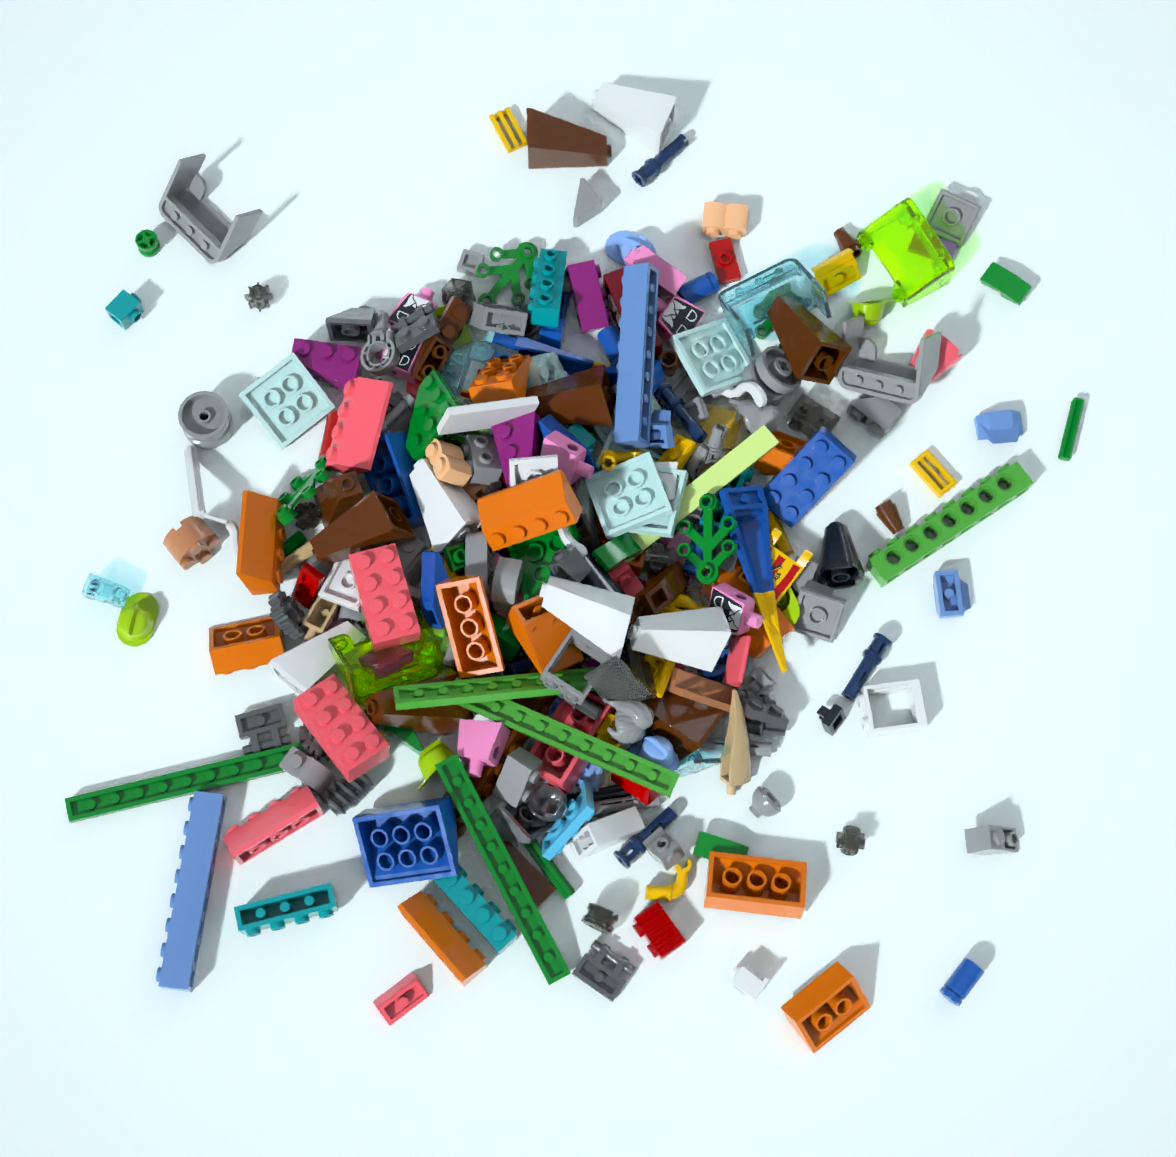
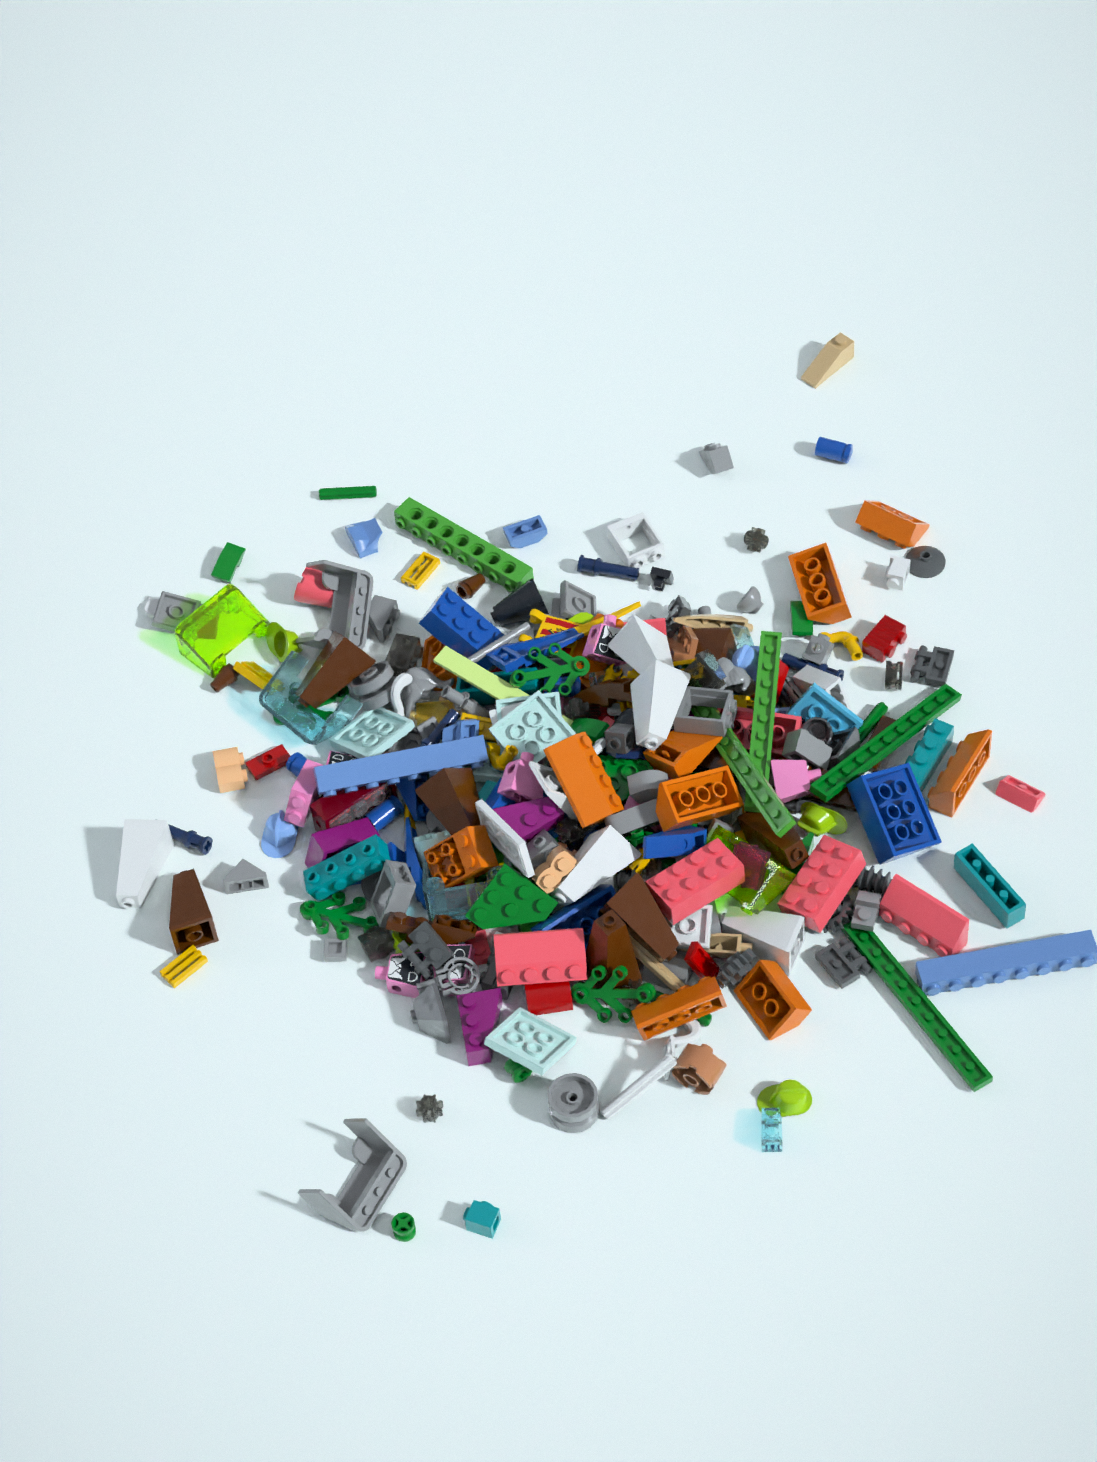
camera: 100 degrees left, 20 degrees down
(748, 1028) = (926, 561): none -> dark grey dish
(772, 501) = (499, 642): none -> light grey bar
(1109, 1031) = (830, 359): none -> tan slope

